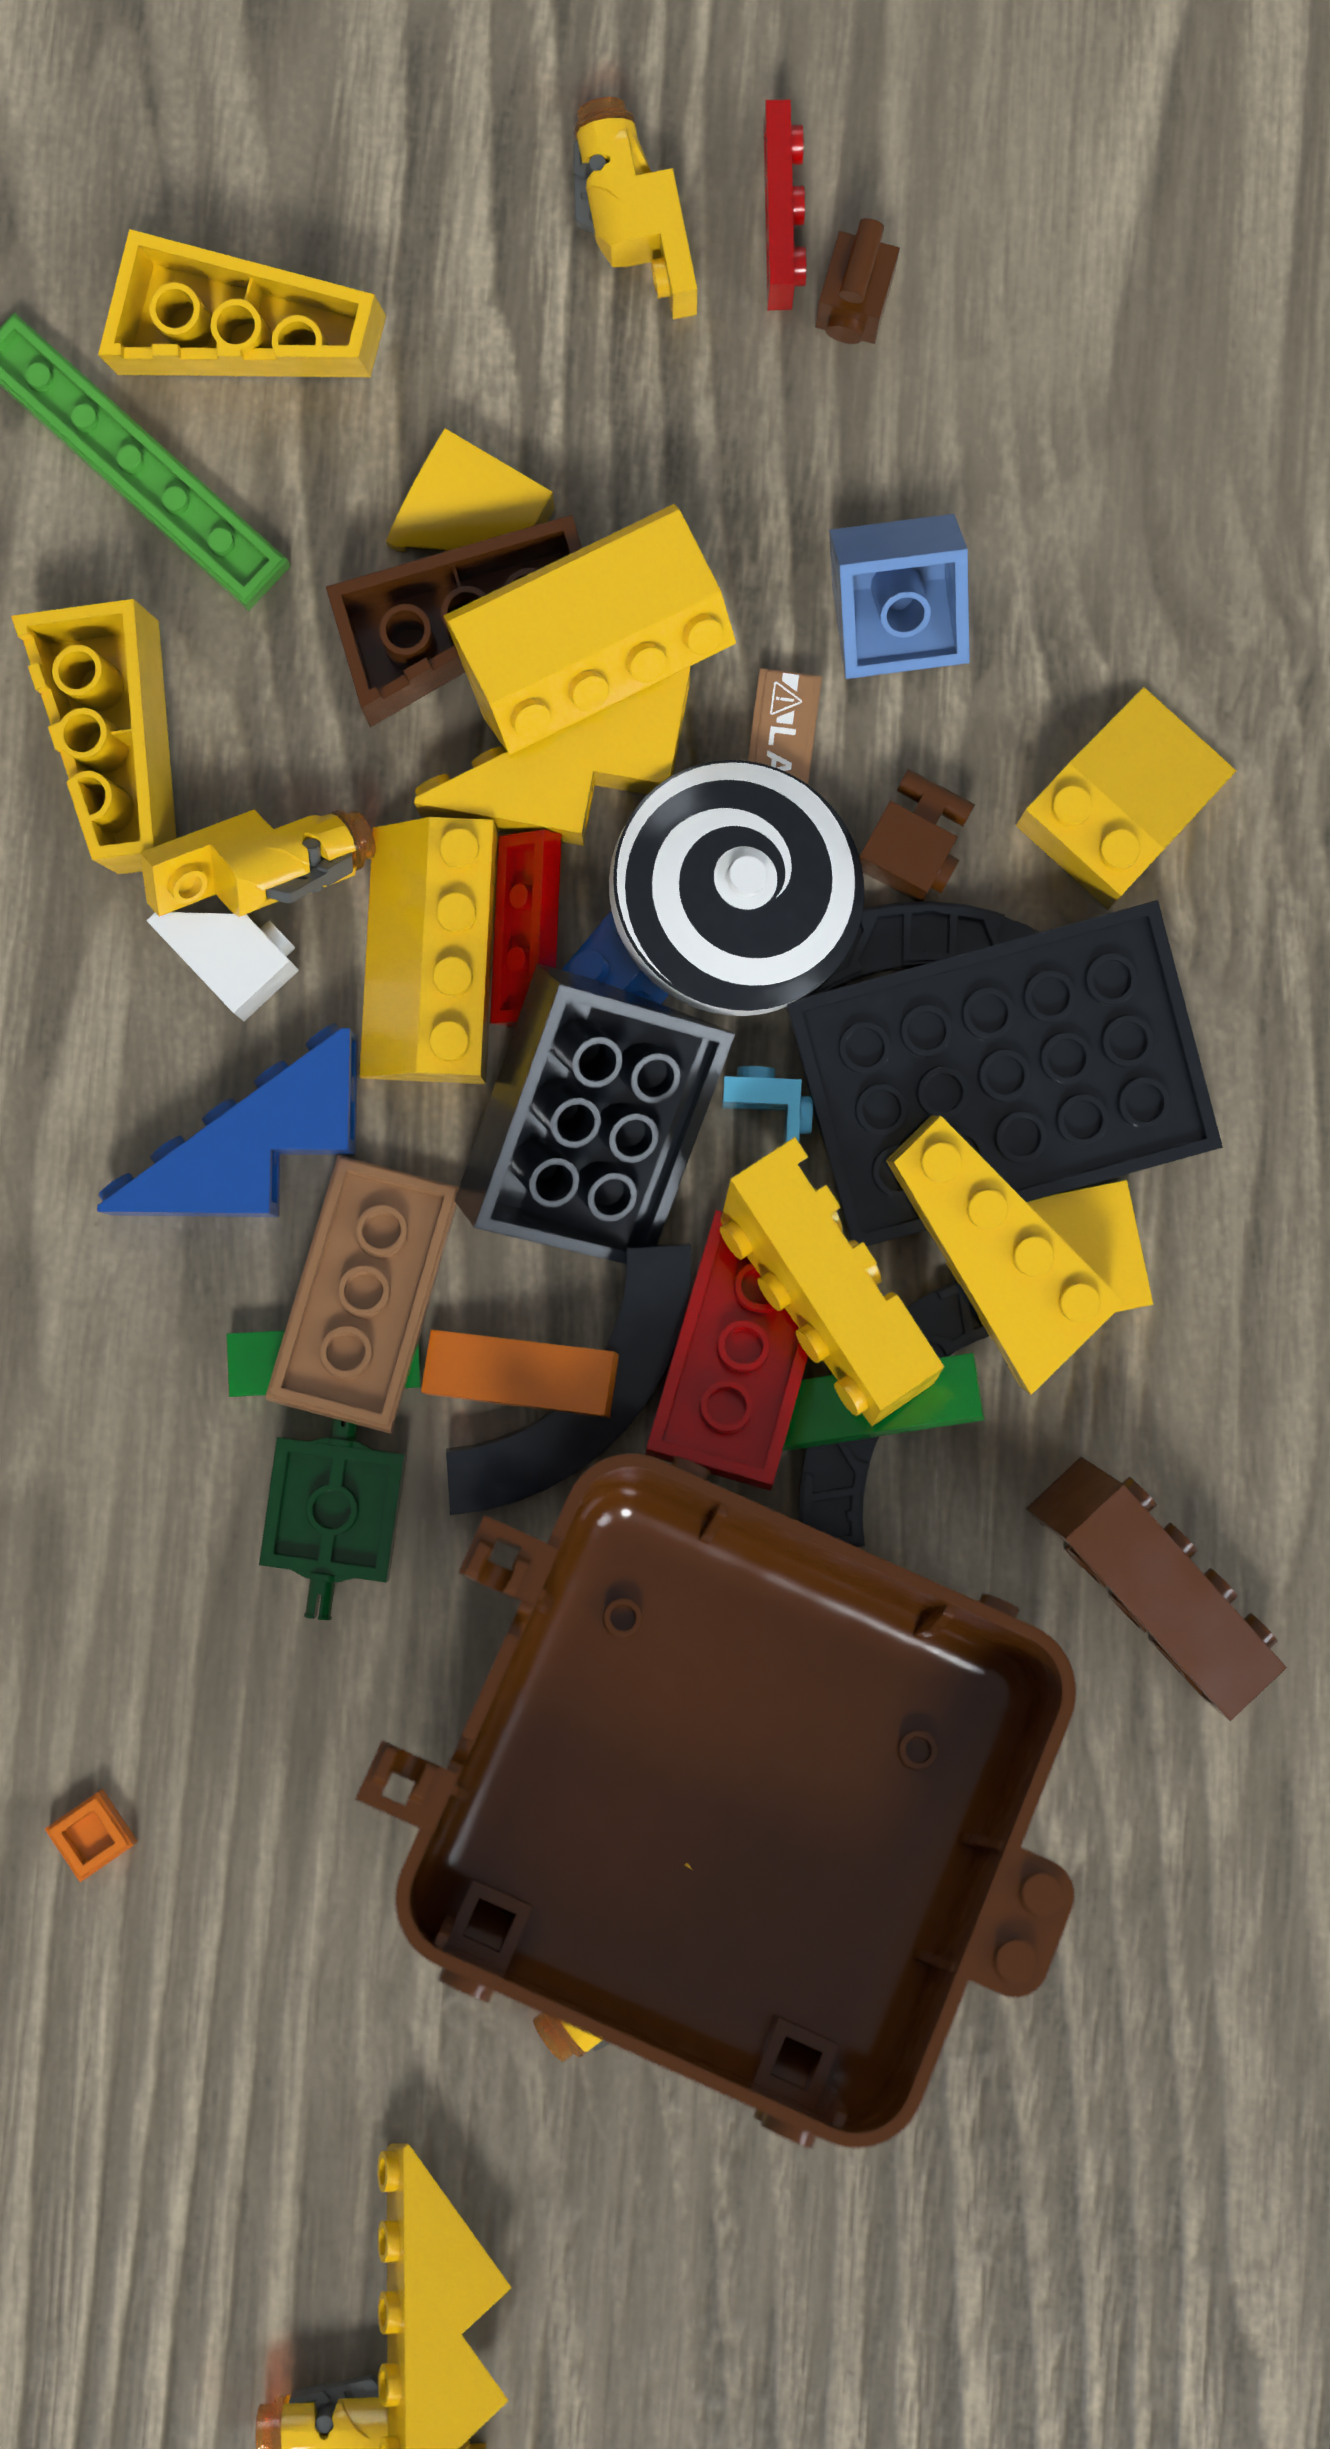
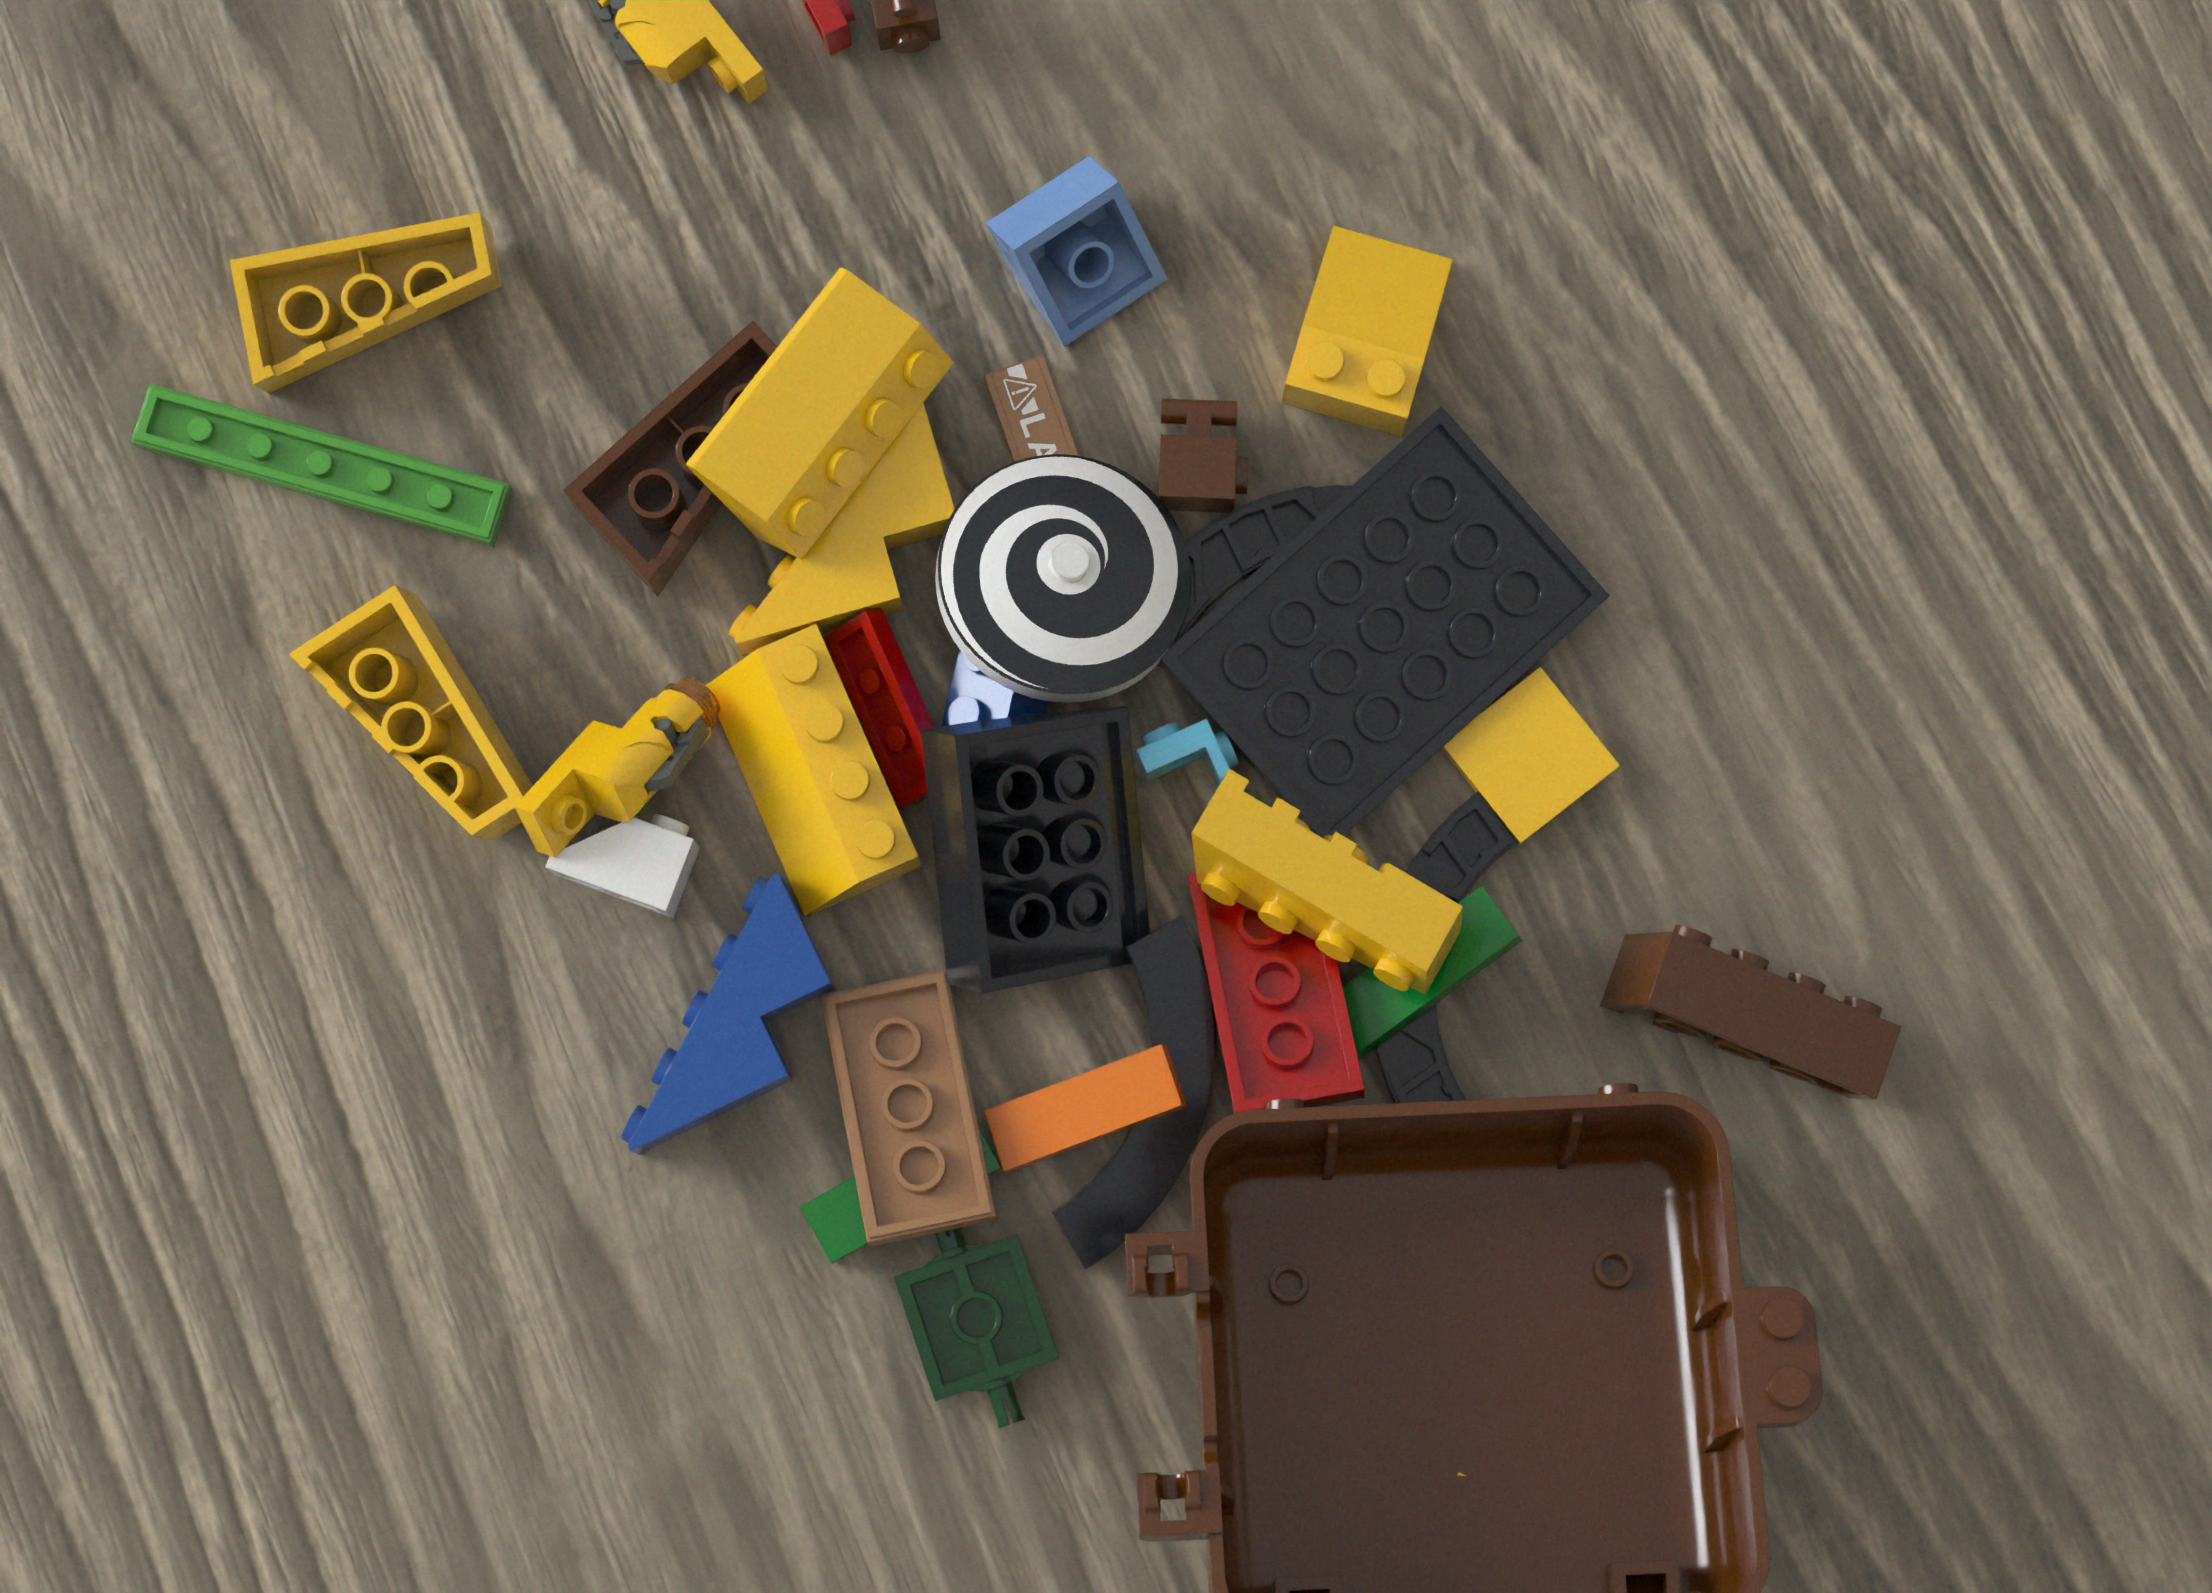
camera: 30 degrees left, 5 degrees down
(466, 499) = (647, 353): yellow slope -> none
(1011, 1264) = (1475, 789): yellow wedge -> none

